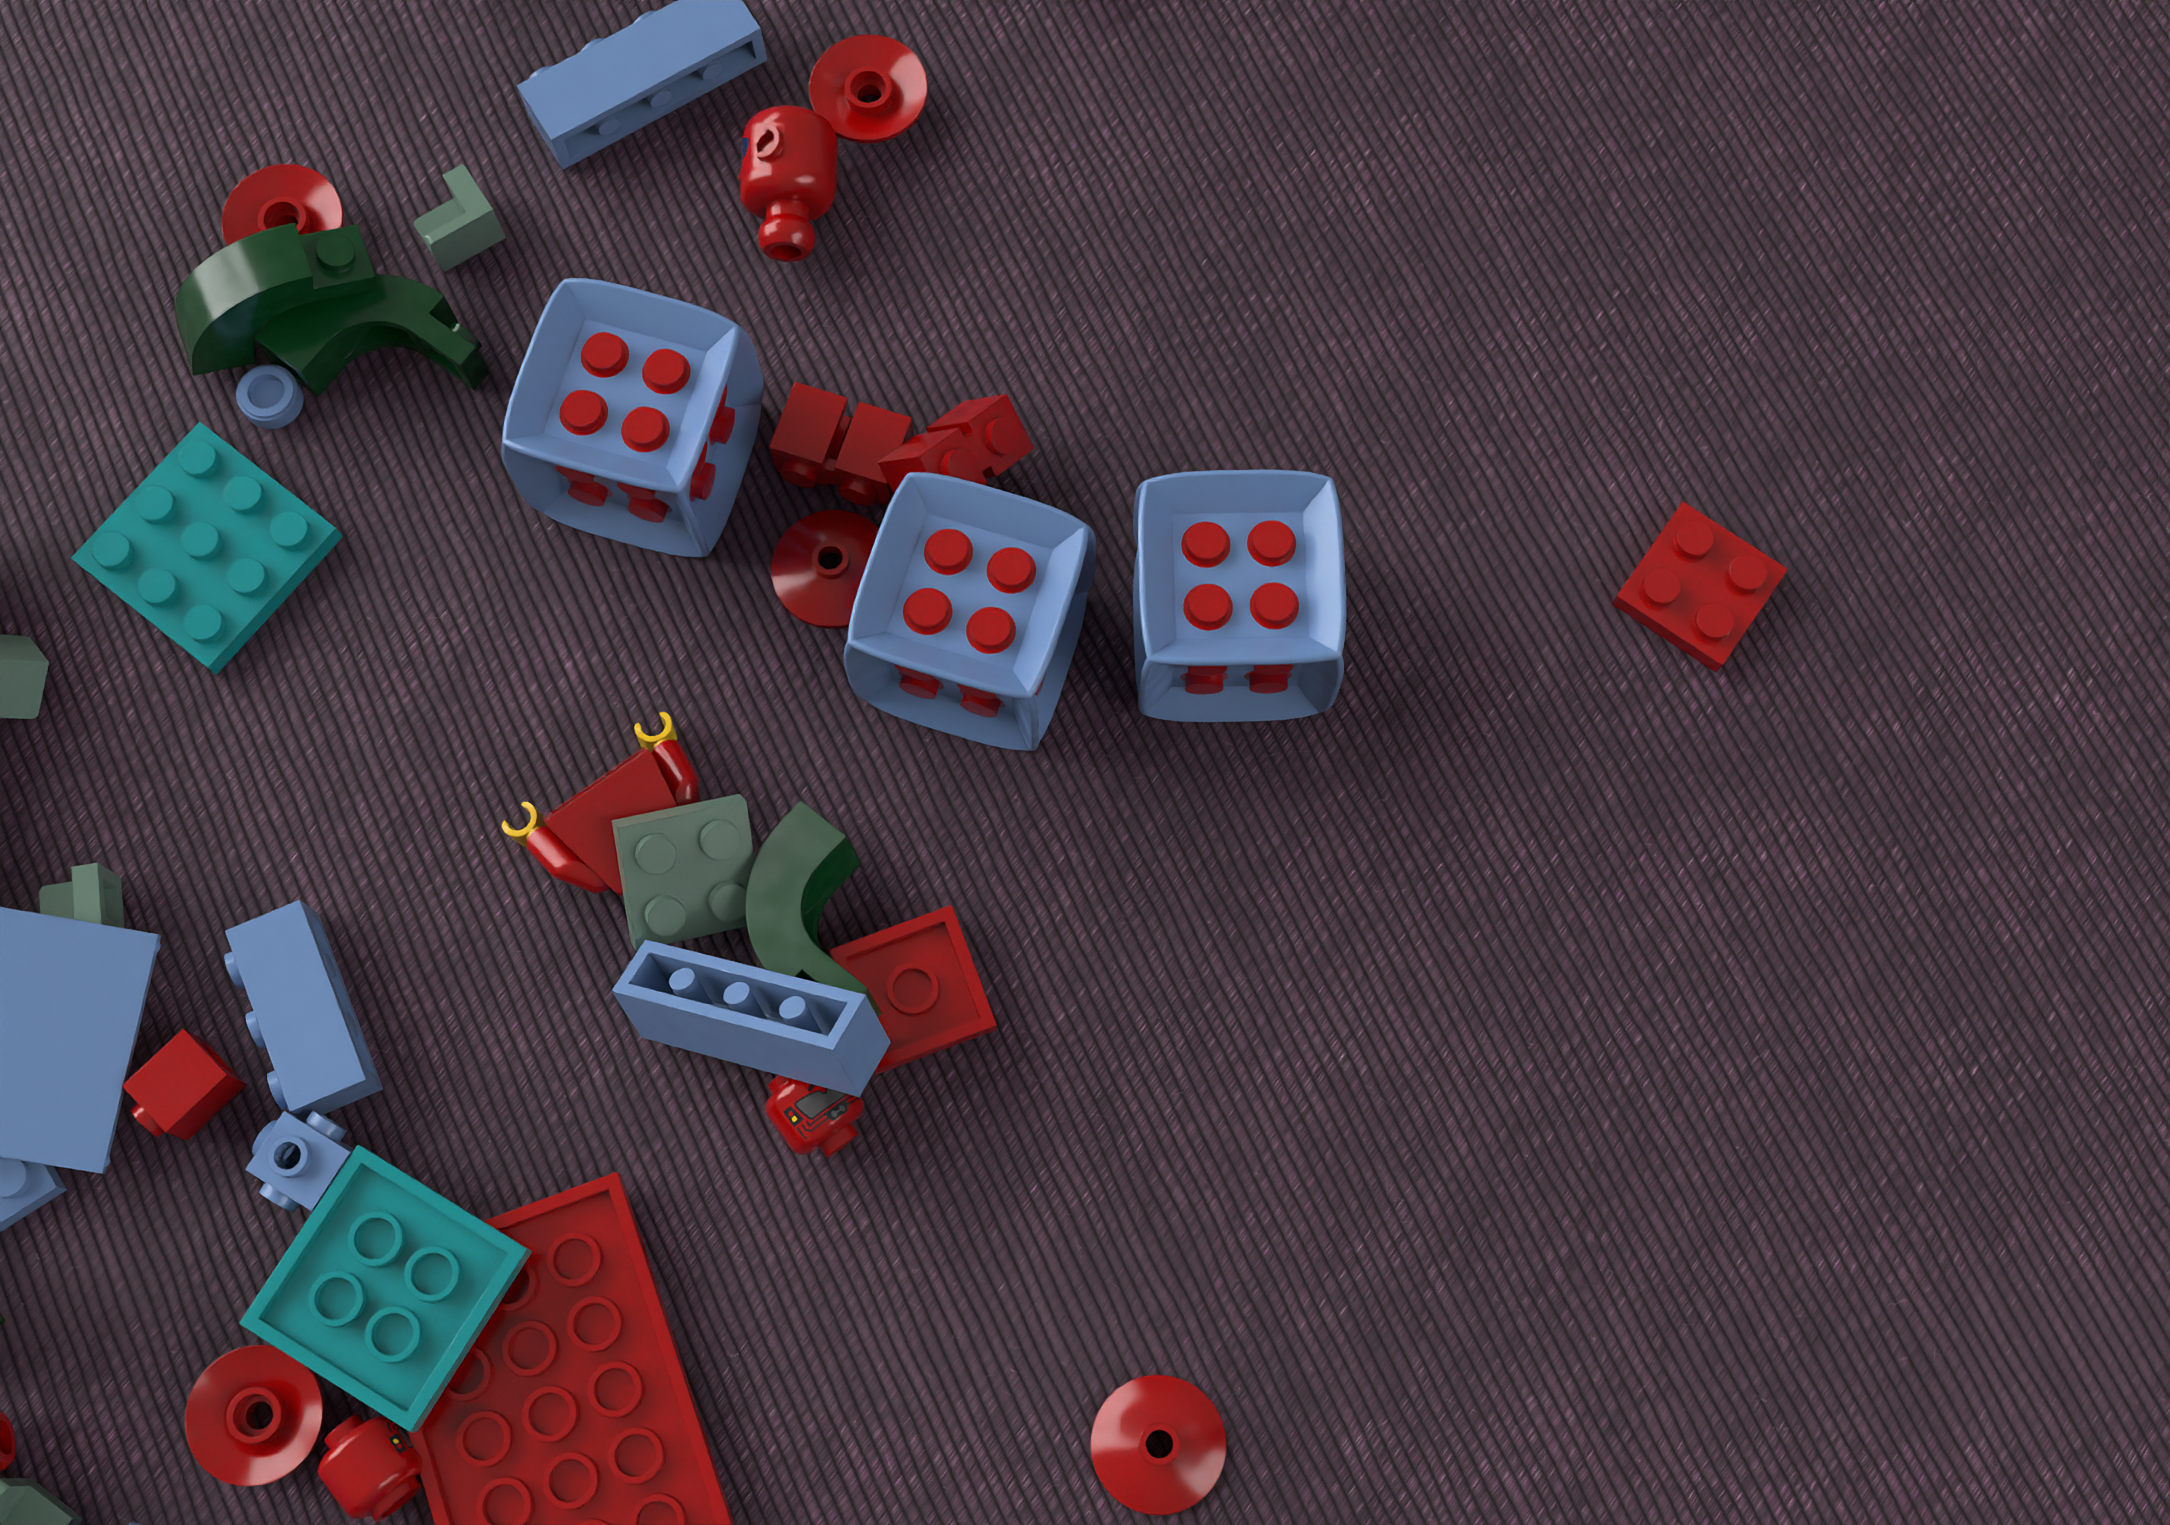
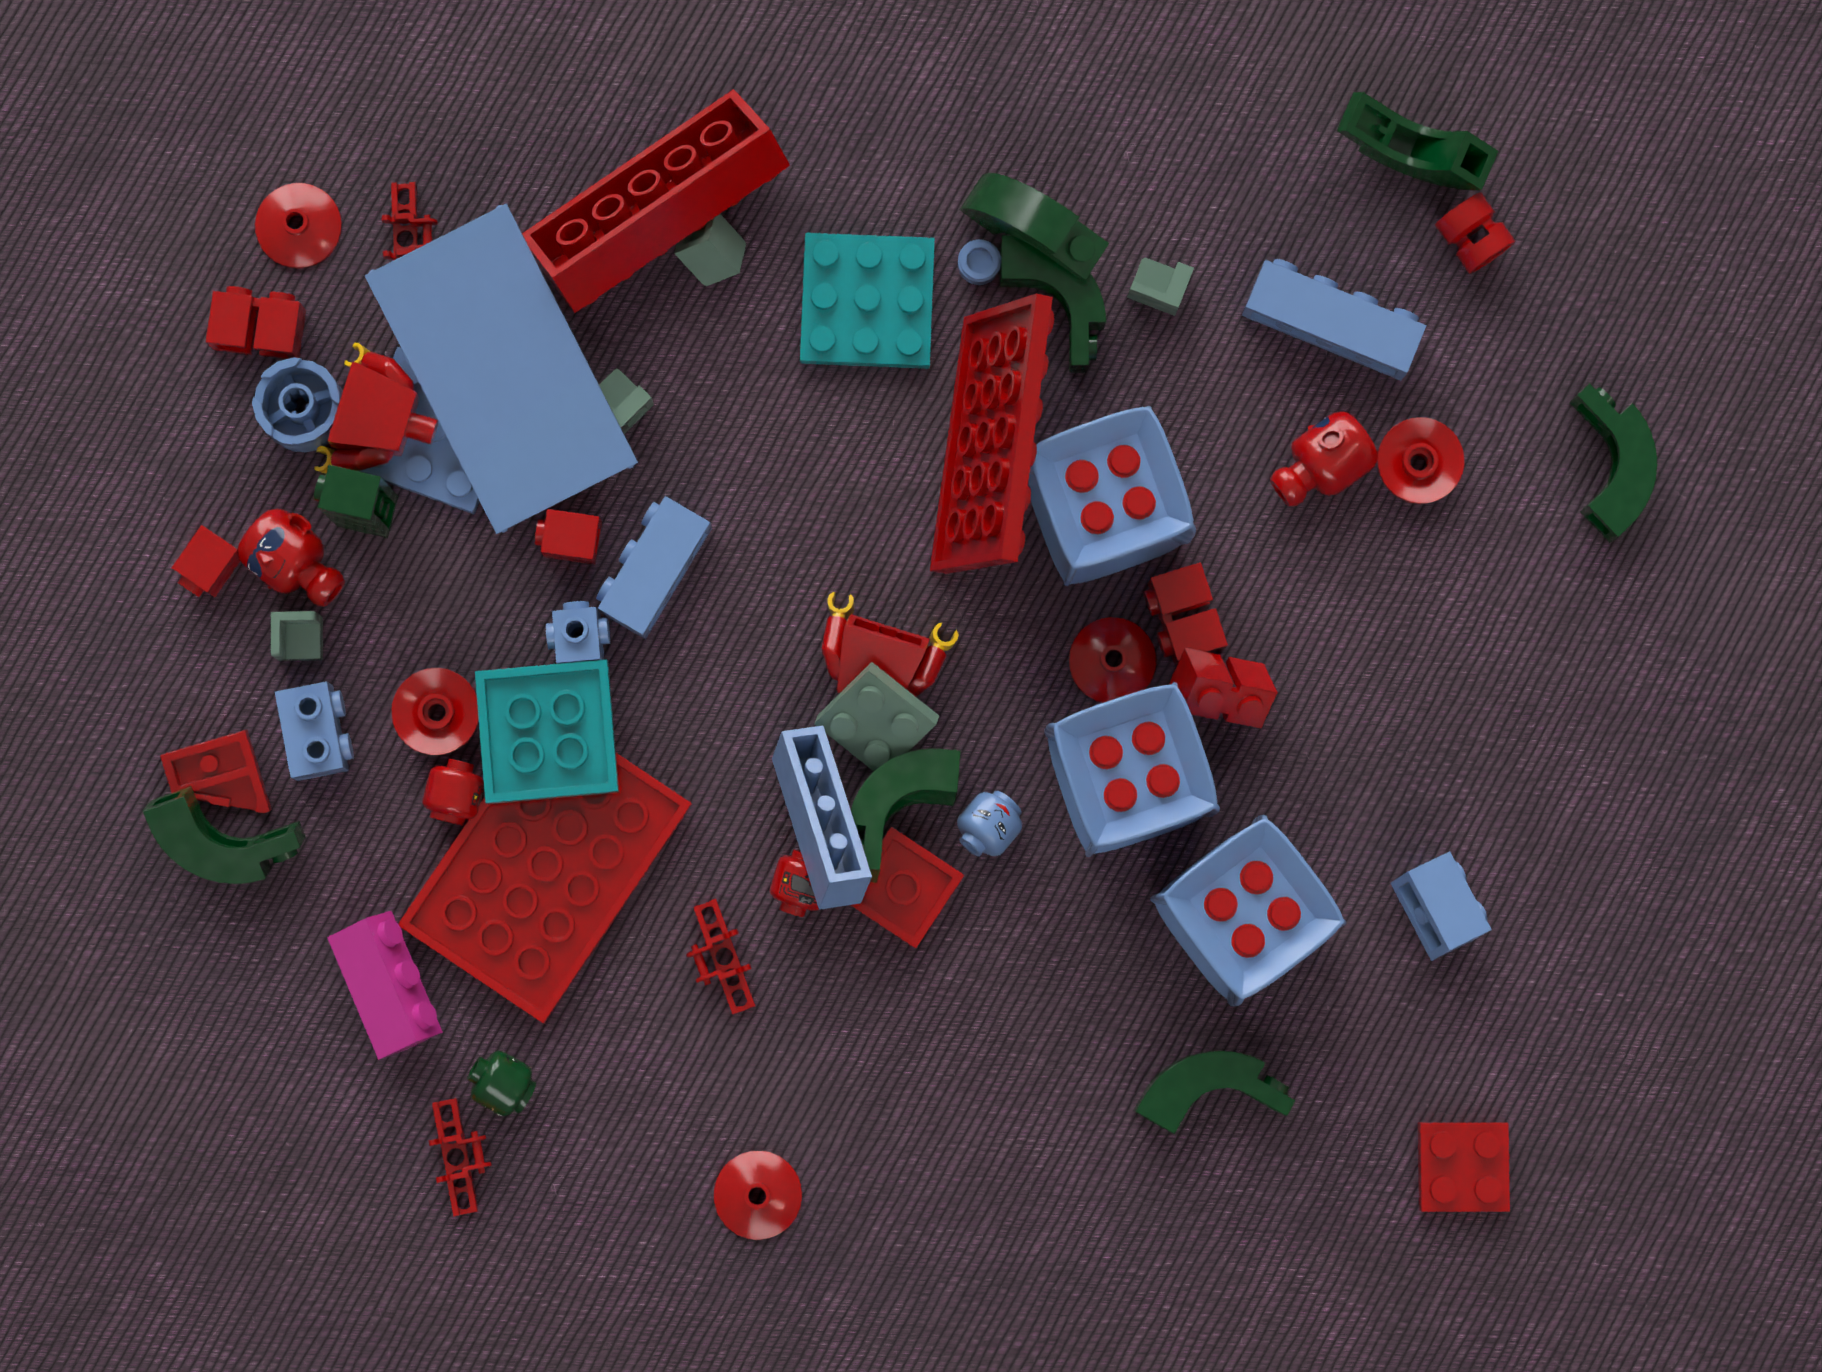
camera: 50 degrees right, 10 degrees up
(281, 197) = (1094, 166): red dish -> none
(462, 492) = (992, 436): none -> red plate
(851, 1286) = (721, 969): none -> red piece
(913, 833) = (989, 824): none -> medium blue head
(1383, 826) = (1187, 1079): none -> dark green arch
(1394, 398) = (1441, 905): none -> medium blue brick

